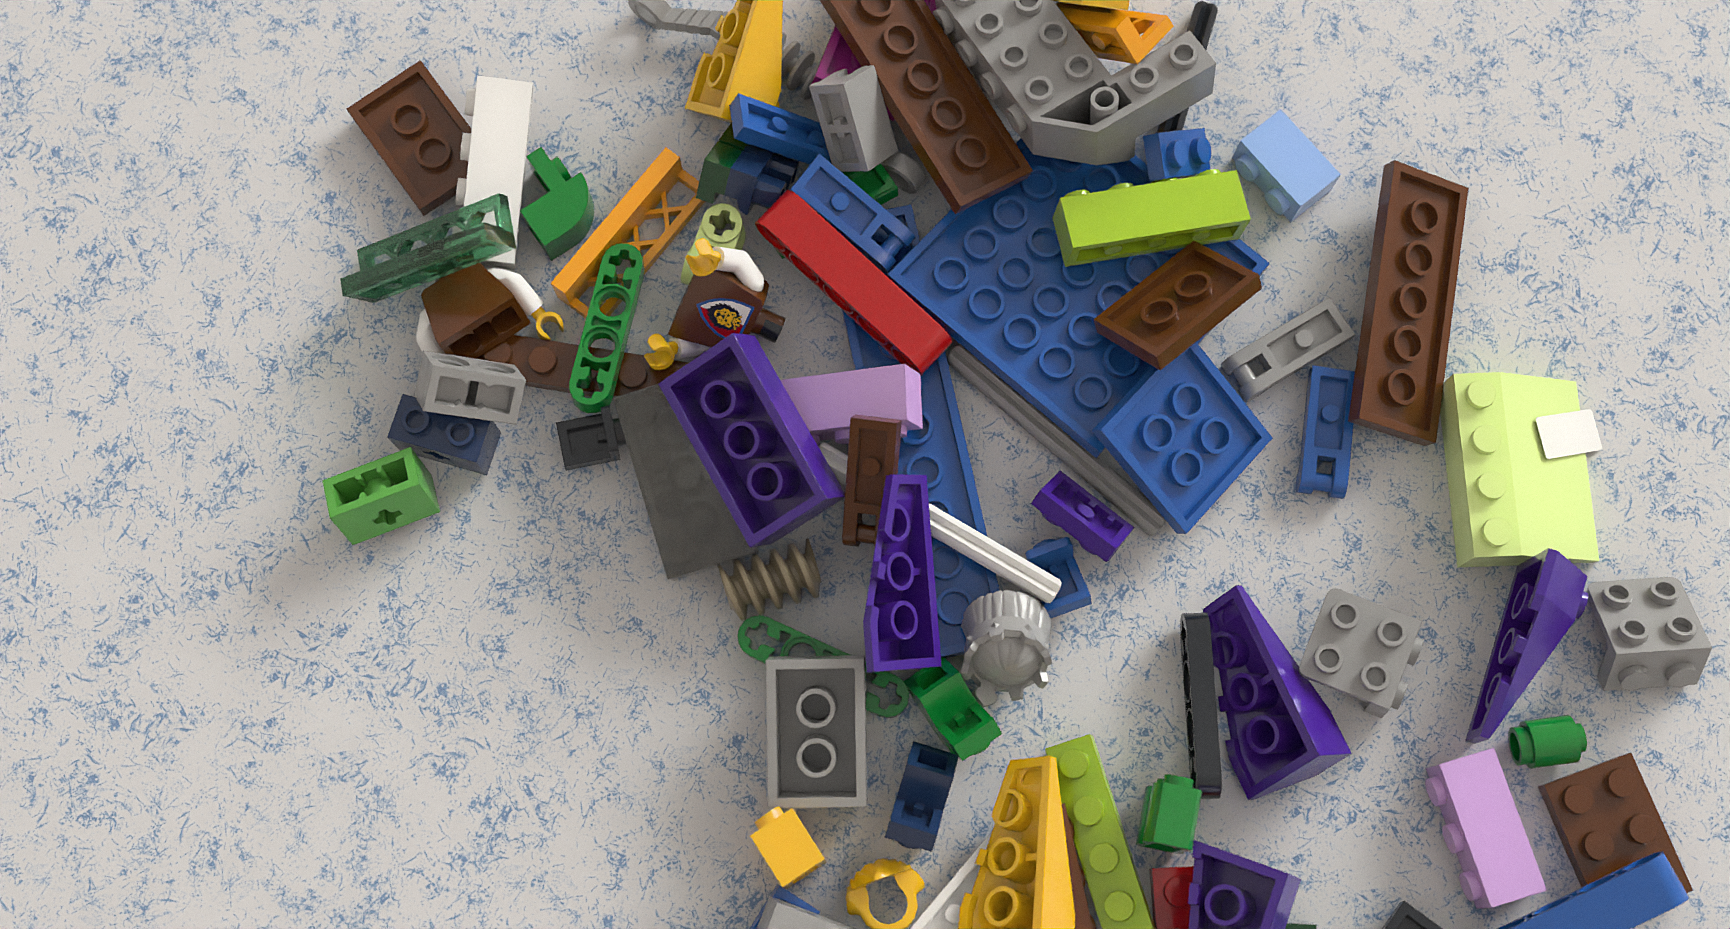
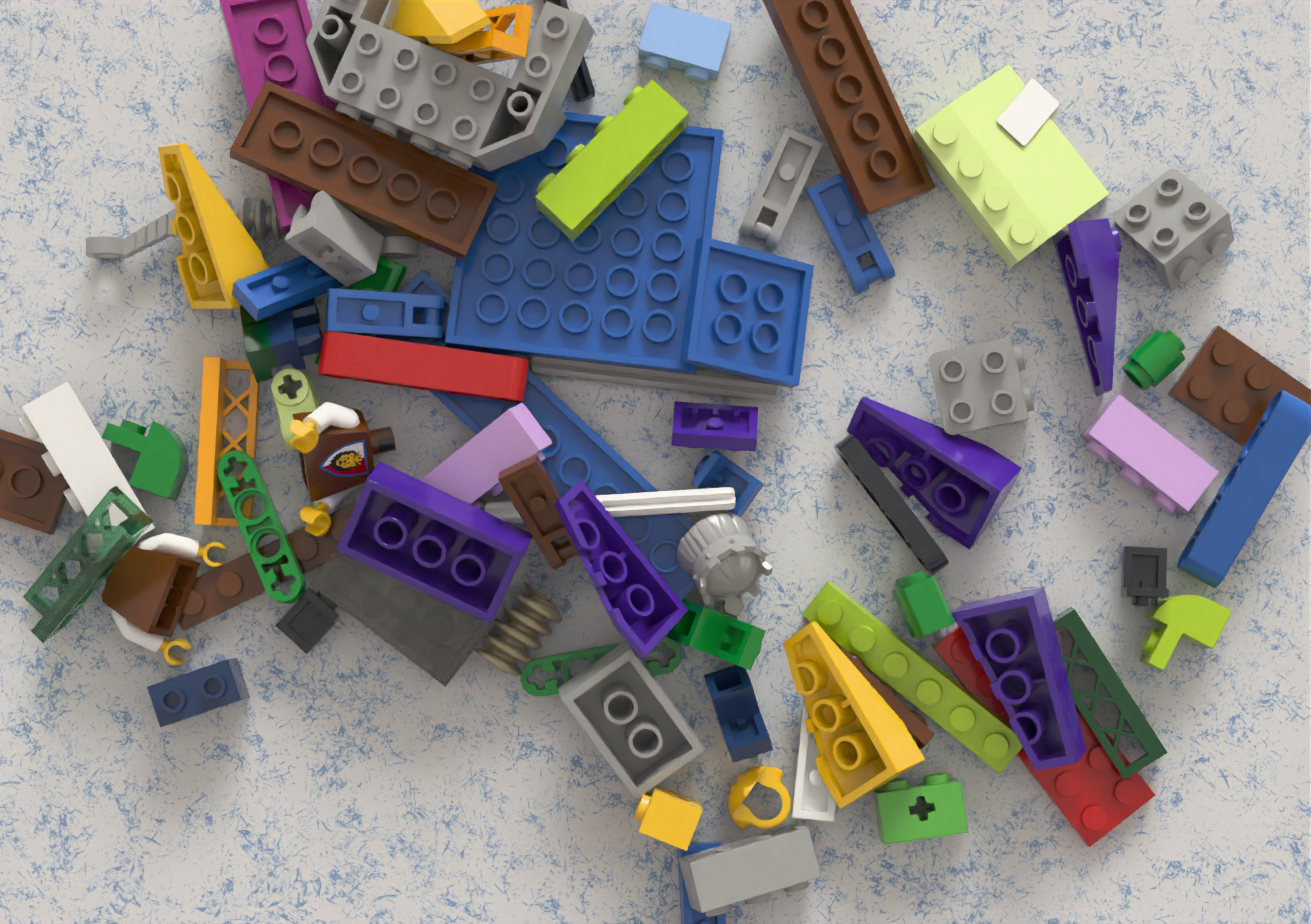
camera: 35 degrees left, 10 degrees up
(381, 496) = (187, 771): bright green brick -> none
(469, 387) = (194, 648): light grey brick -> none
(1177, 153) = (597, 92): blue plate -> none
(1177, 304) = (678, 219): reddish brown plate -> none

